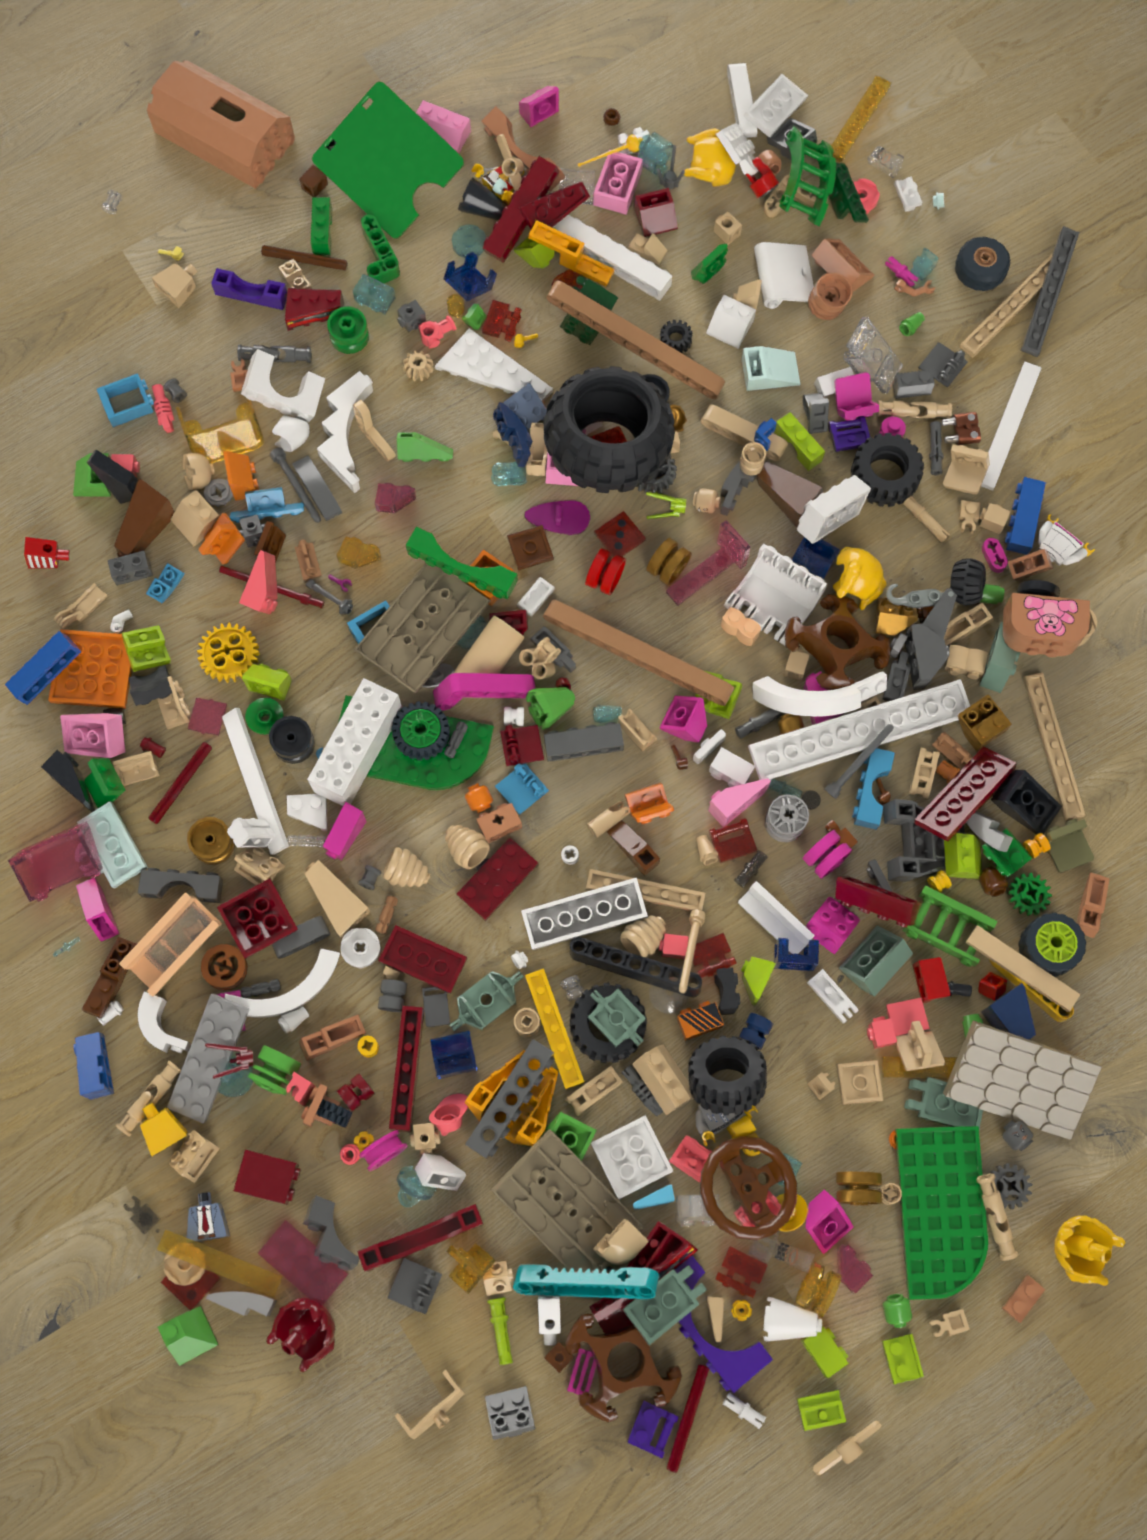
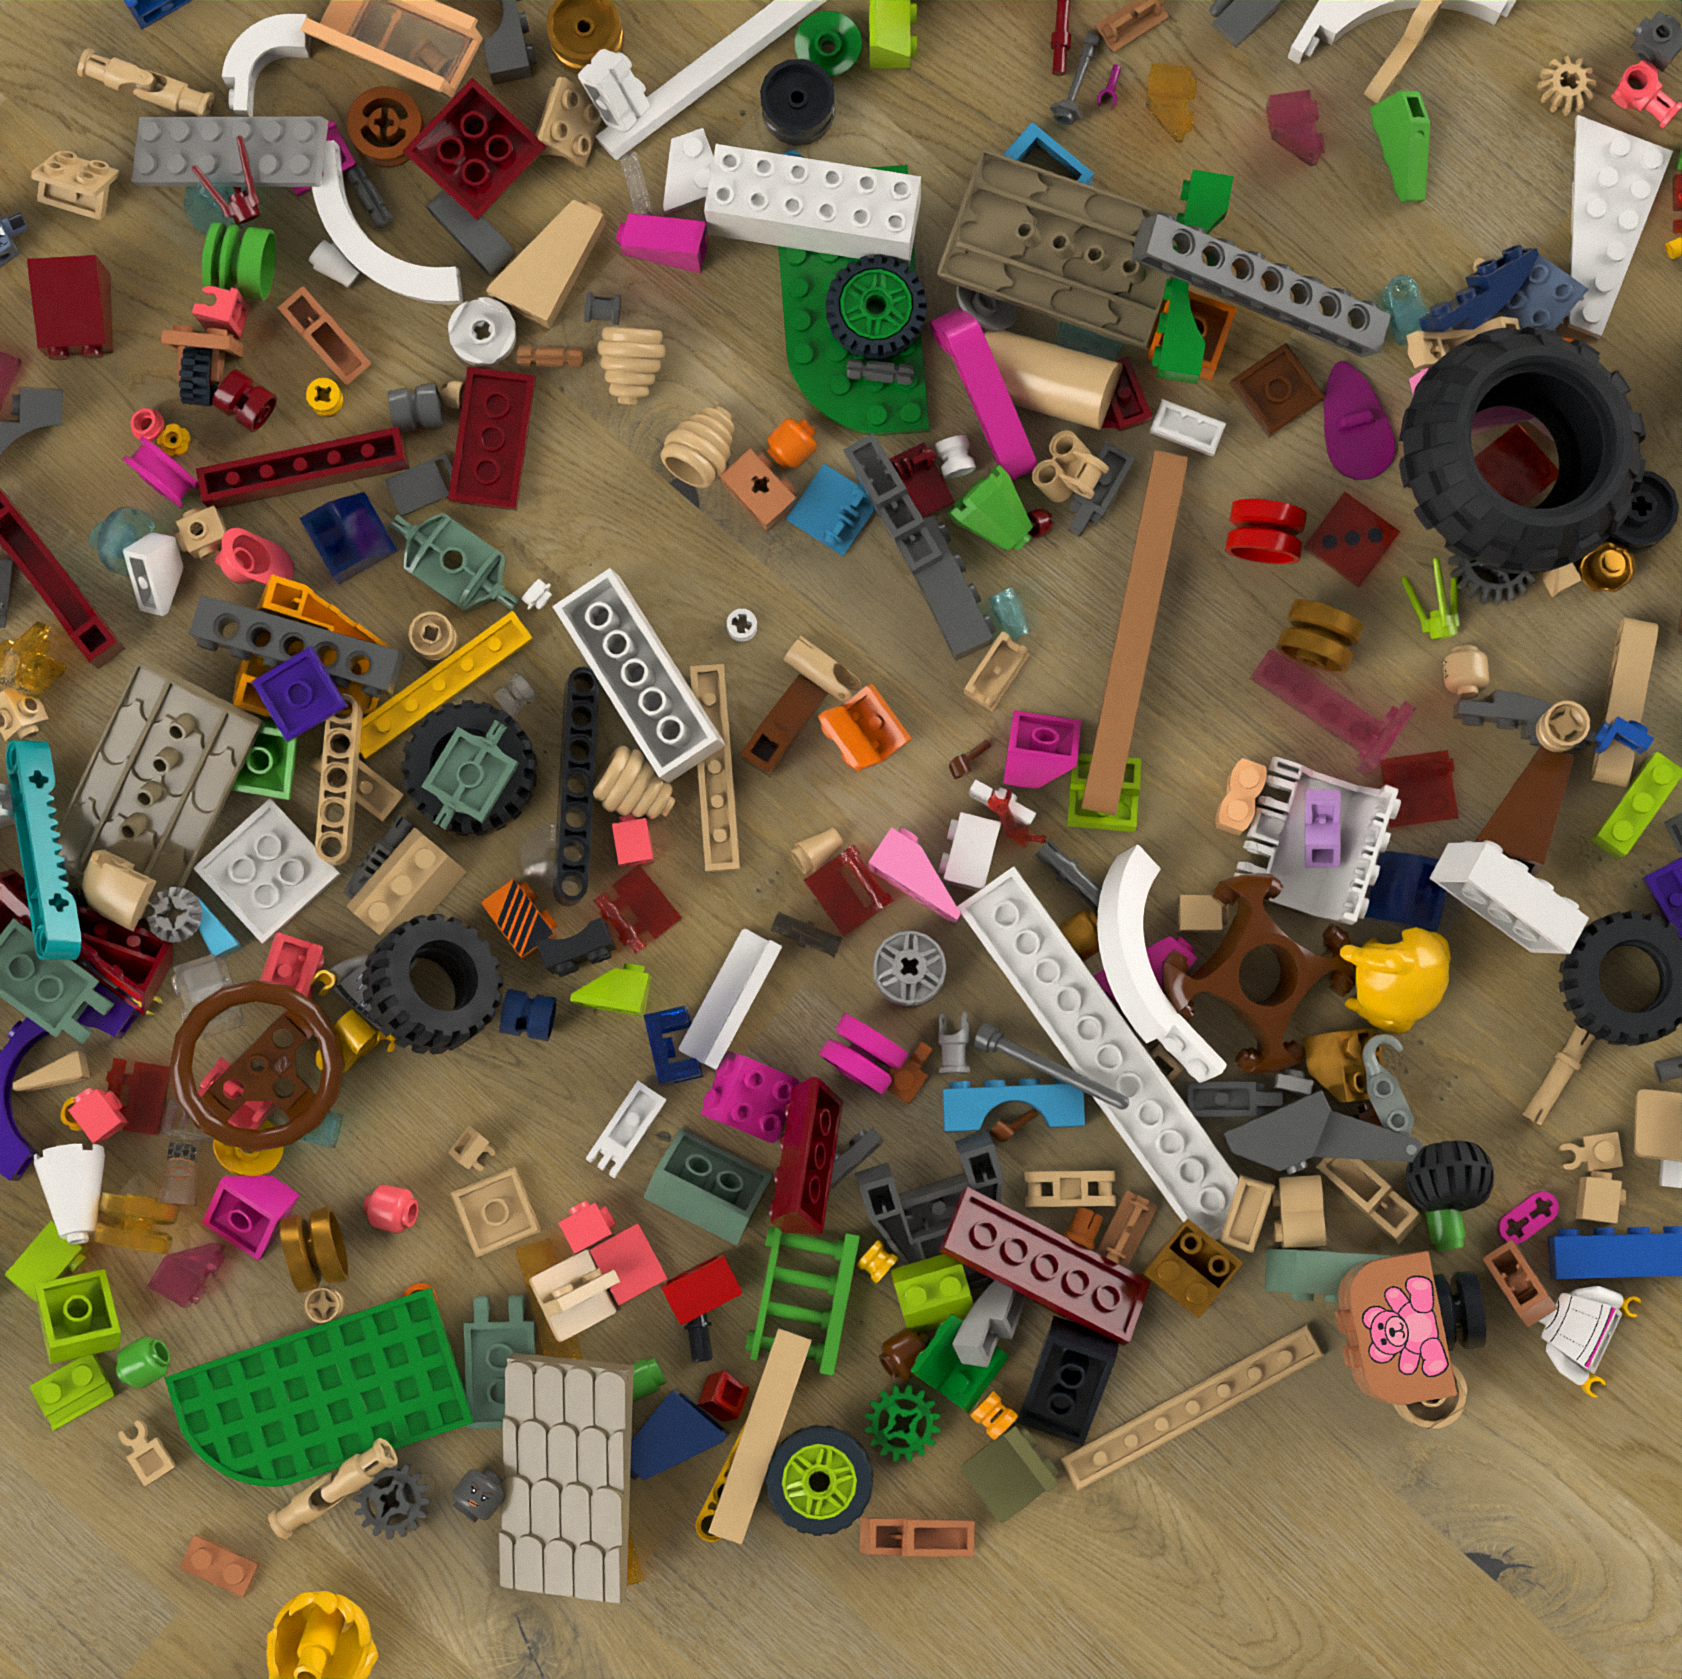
camera: 80 degrees right, 10 degrees up
(160, 1129) = (101, 119): yellow torso -> none
(476, 532) = (1155, 250): none -> dark grey brick
(497, 879) = (664, 518): dark red plate -> none
(532, 751) = (893, 504): none -> dark grey slope
(541, 1102) = (299, 694): none -> dark purple plate
(585, 1090) = (345, 795): none -> tan beam
(652, 1208) = (185, 924): none -> light grey gear
(696, 919) = (691, 867): tan piece -> none
(713, 743) = (1014, 831): none -> clear red piece
(748, 1294) = (98, 1114): none -> coral brick
(757, 534) = (1423, 787): none -> clear red hinge
(770, 591) = (1322, 828): none -> lavender brick
(783, 788) = (965, 955): clear light blue axle -> none
(811, 799) = (963, 1001): clear smoke piece -> none
(834, 809) = (954, 1047): none -> light grey piece
(844, 1140) = (391, 1208): none -> coral head
(862, 1340) = (77, 1316): none -> lime slope
(961, 685) = (1246, 1213): none -> tan tile

